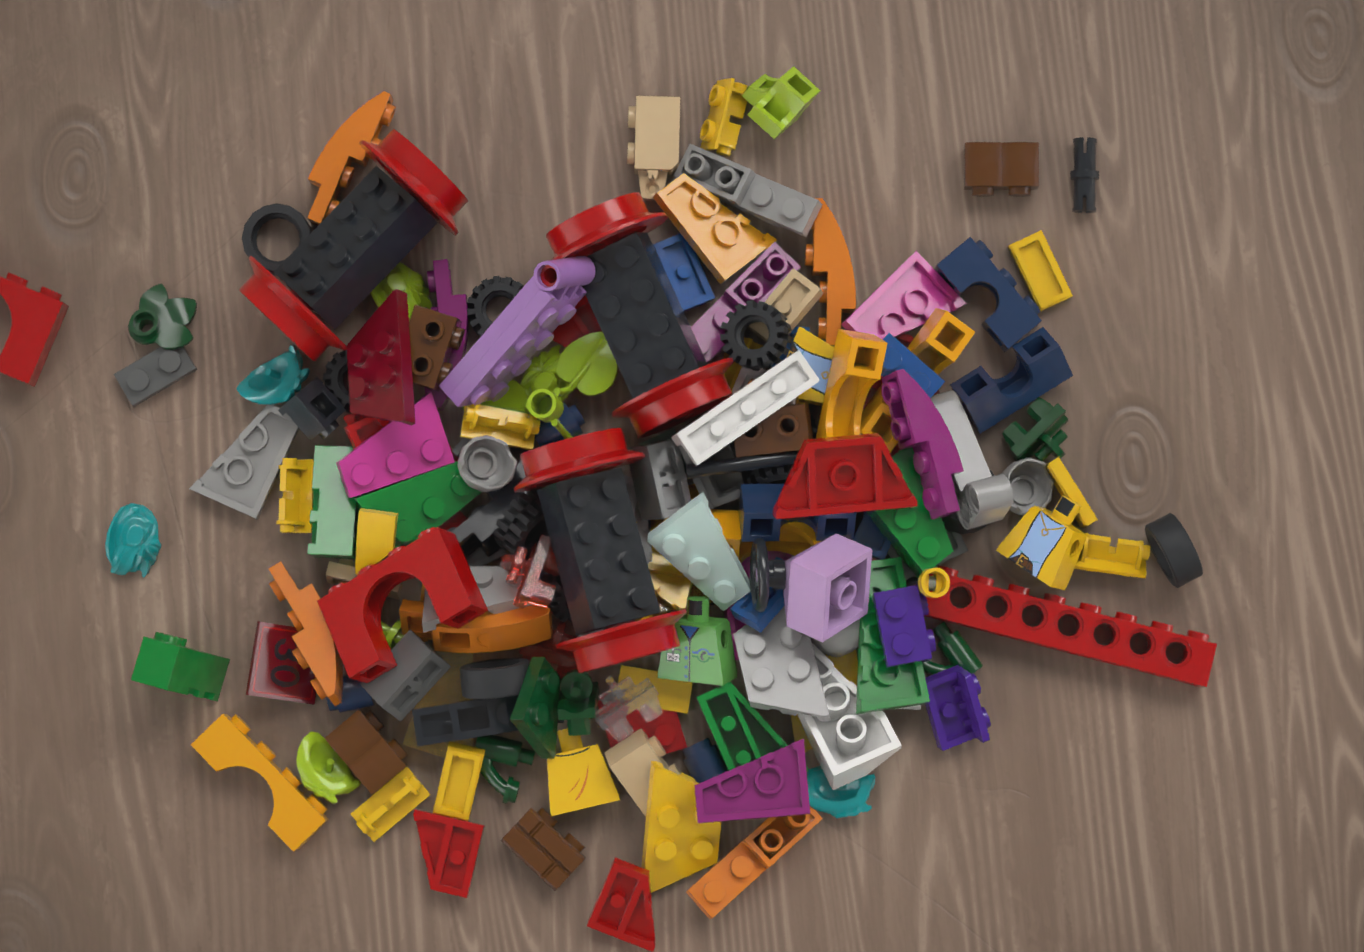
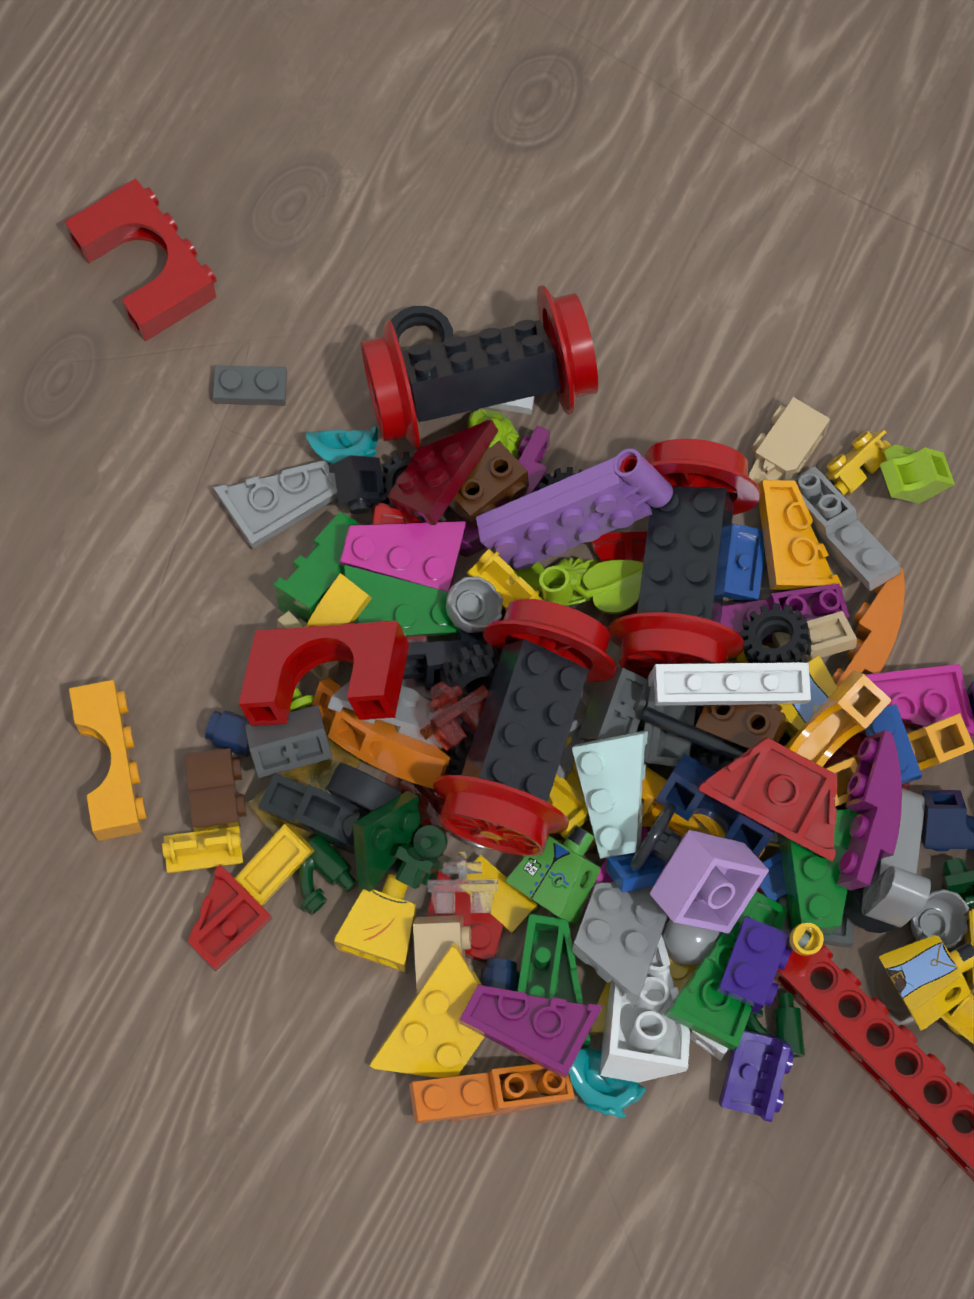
camera: 35 degrees right, 15 degrees down
(132, 540) = (138, 503): teal hat -> none
(167, 317) = (283, 347): dark green plate -> none
(180, 669) = (101, 615): green wedge -> none
(275, 669) = (195, 674): dark red piece -> none
(297, 495) = (302, 532): yellow hinge -> none
(314, 641) = (230, 662): orange slope -> none
(323, 769) = (166, 780): lime hat -> none
(333, 165) = (520, 302): orange slope -> none
(544, 848) = (309, 968): reddish brown brick -> none
(625, 906) = (348, 1065): red wing -> none

